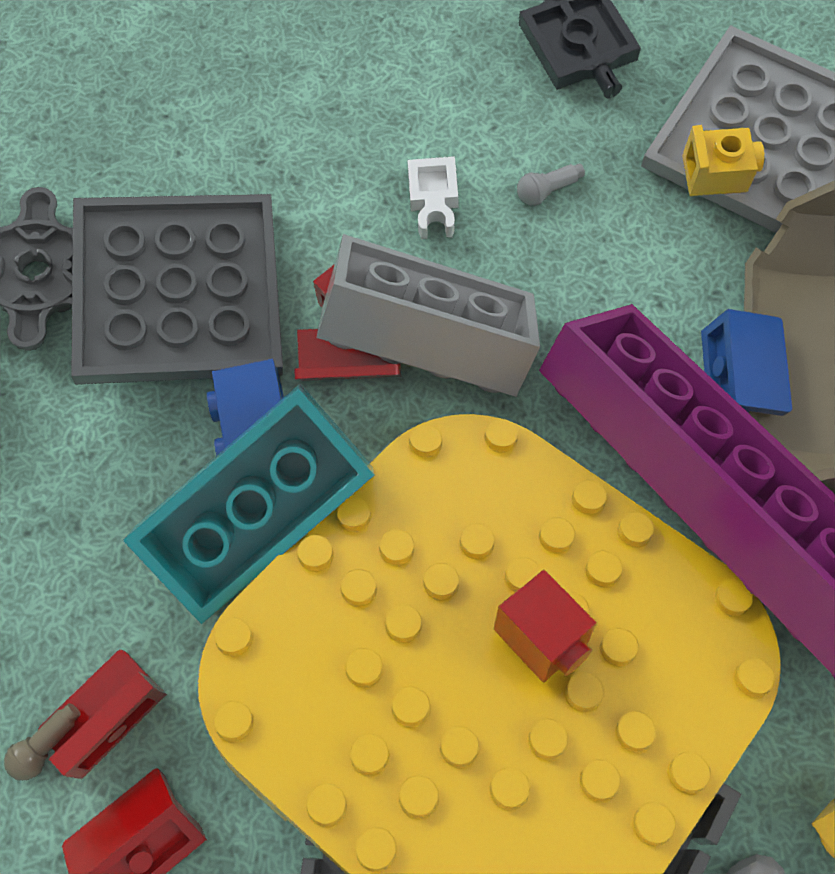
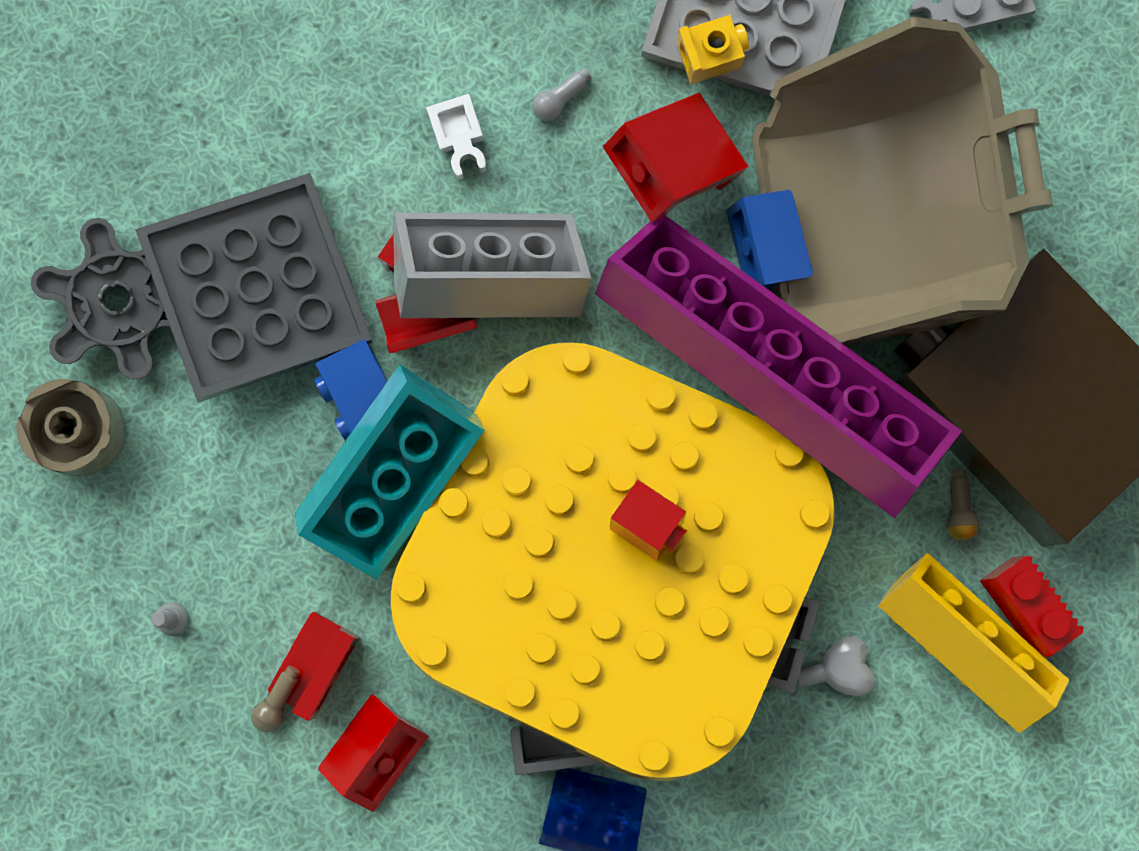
camera: 15 degrees left, 15 degrees up
(658, 247) = (674, 155): none -> red panel

